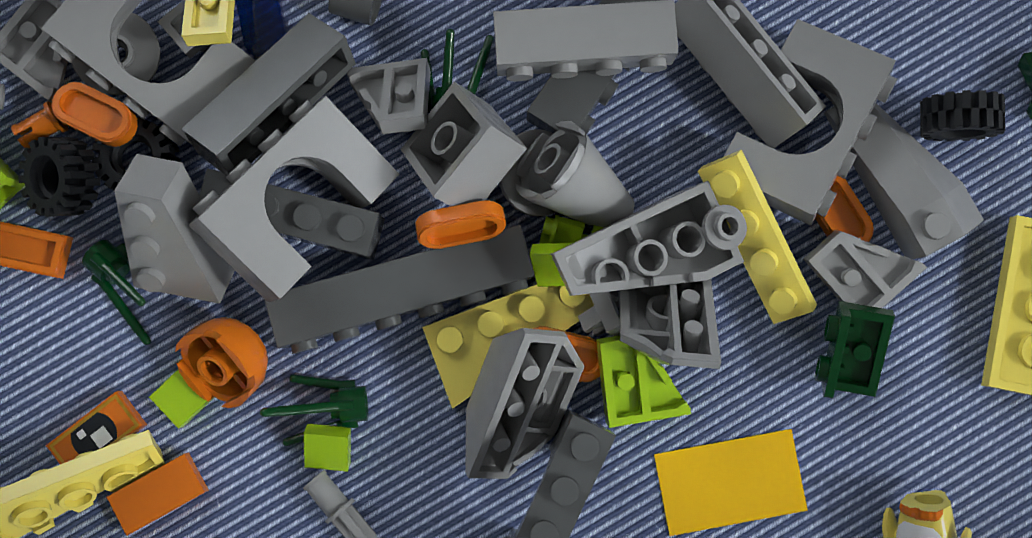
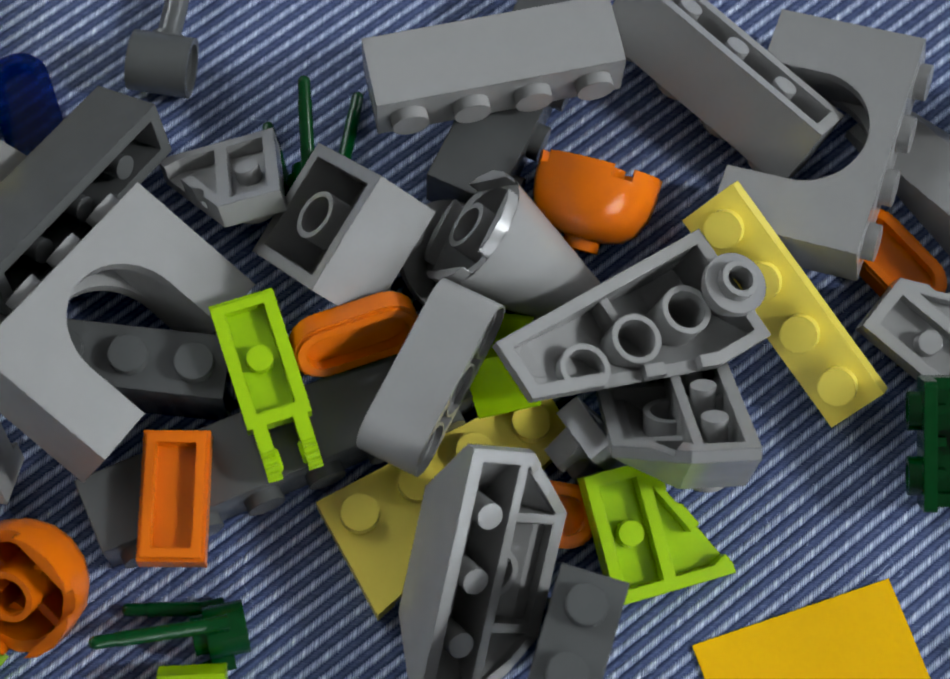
camera: 10 degrees left, 15 degrees down
(327, 320) = (174, 498): none -> orange tile
(396, 247) = (265, 376): none -> lime hinge
(507, 263) = (430, 377): none -> light grey beam
(639, 143) = (593, 199): none -> orange cylinder

